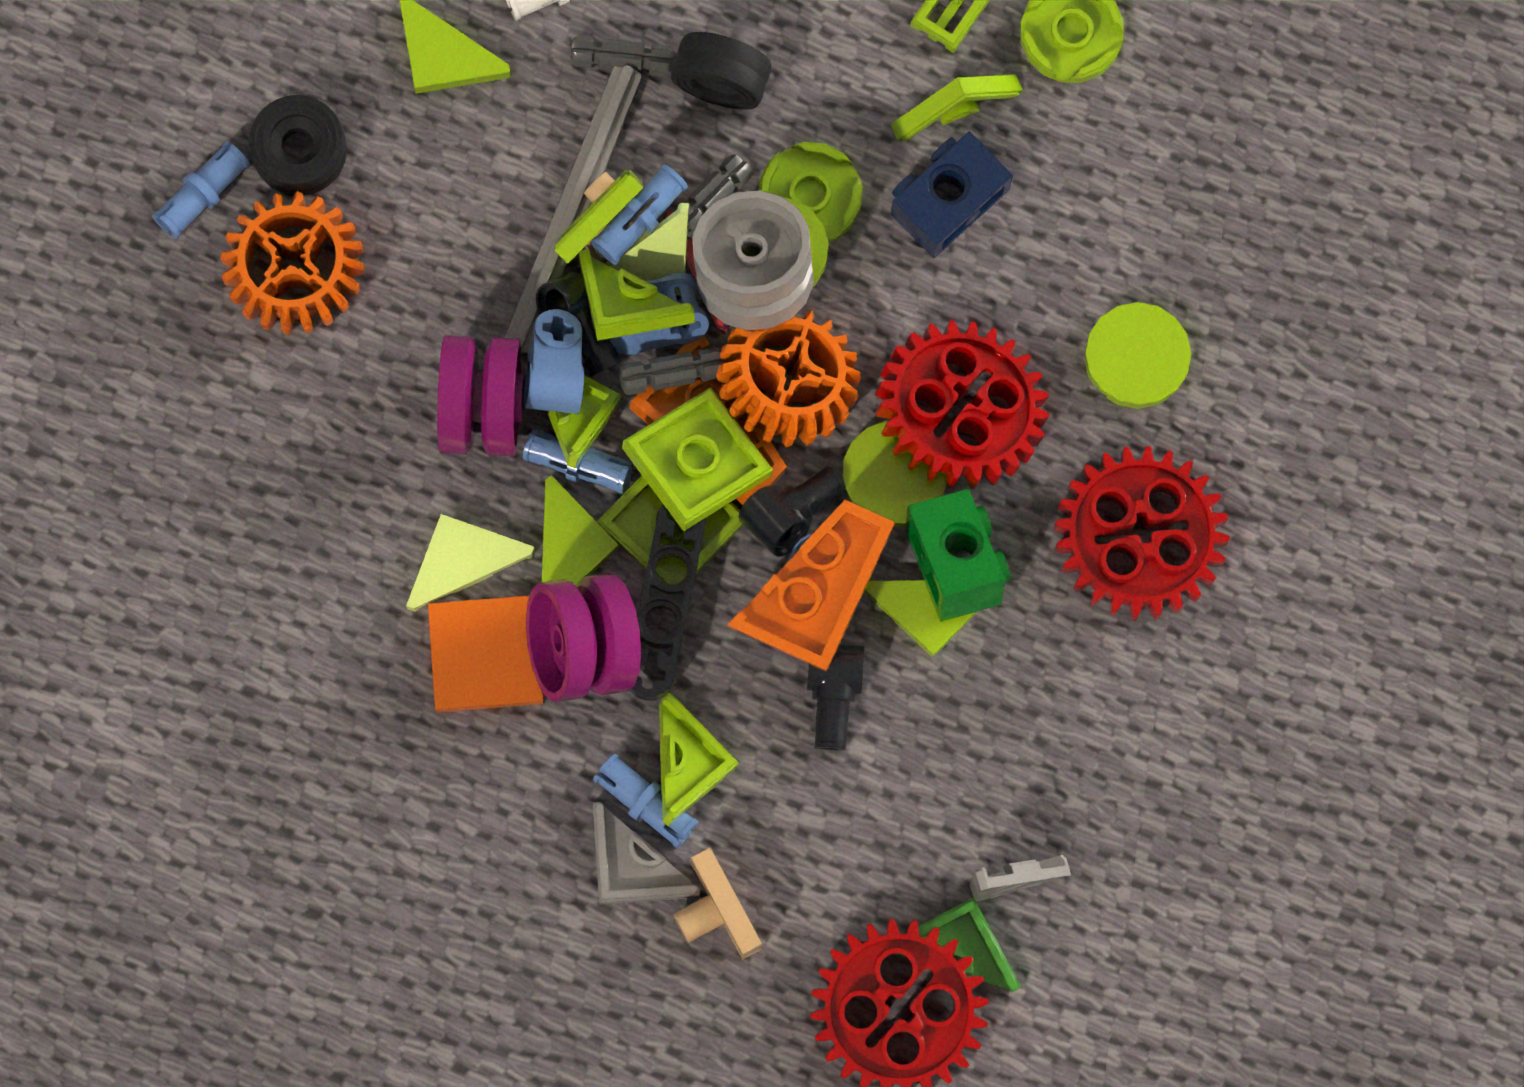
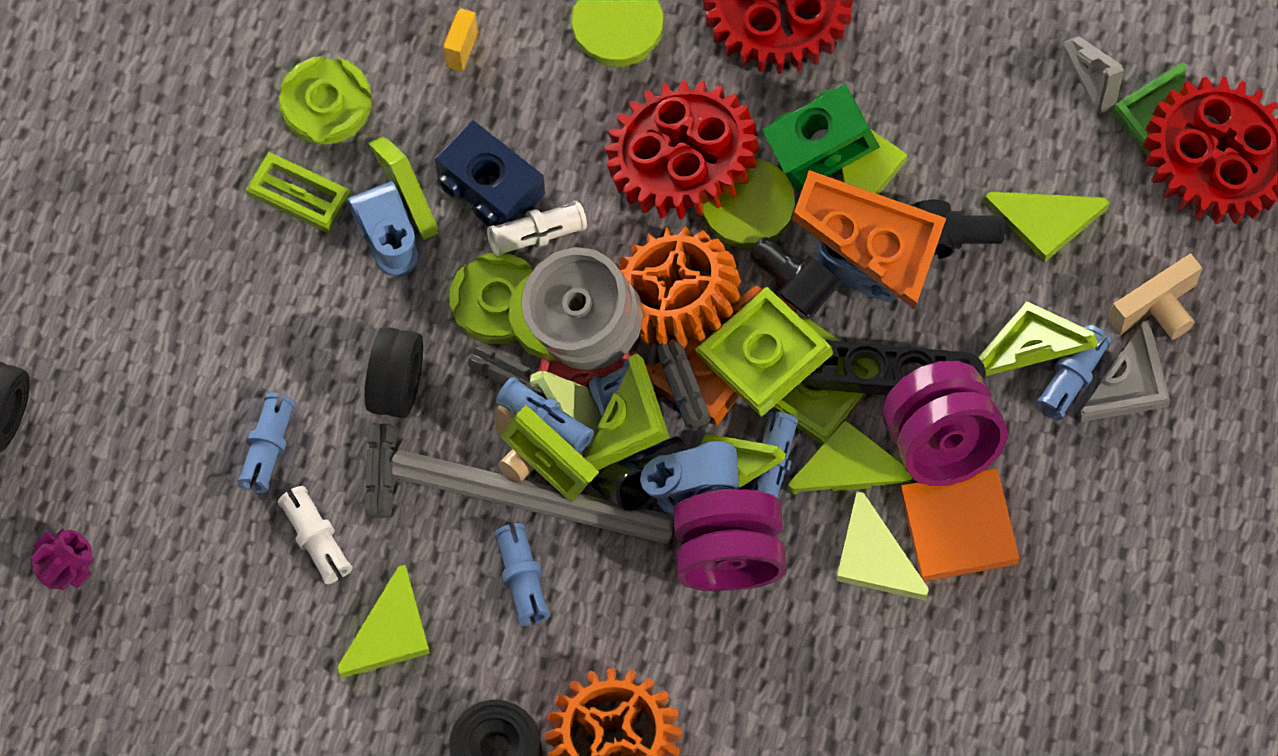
camera: 90 degrees left, 10 degrees down
(484, 189) = (522, 574): none -> medium blue pin
(838, 799) = (1046, 220): none -> lime tile
(883, 239) = (536, 228): none -> white pin
(908, 78) = (383, 225): none -> medium blue piece
(1125, 177) = (460, 39): none -> yellow tile

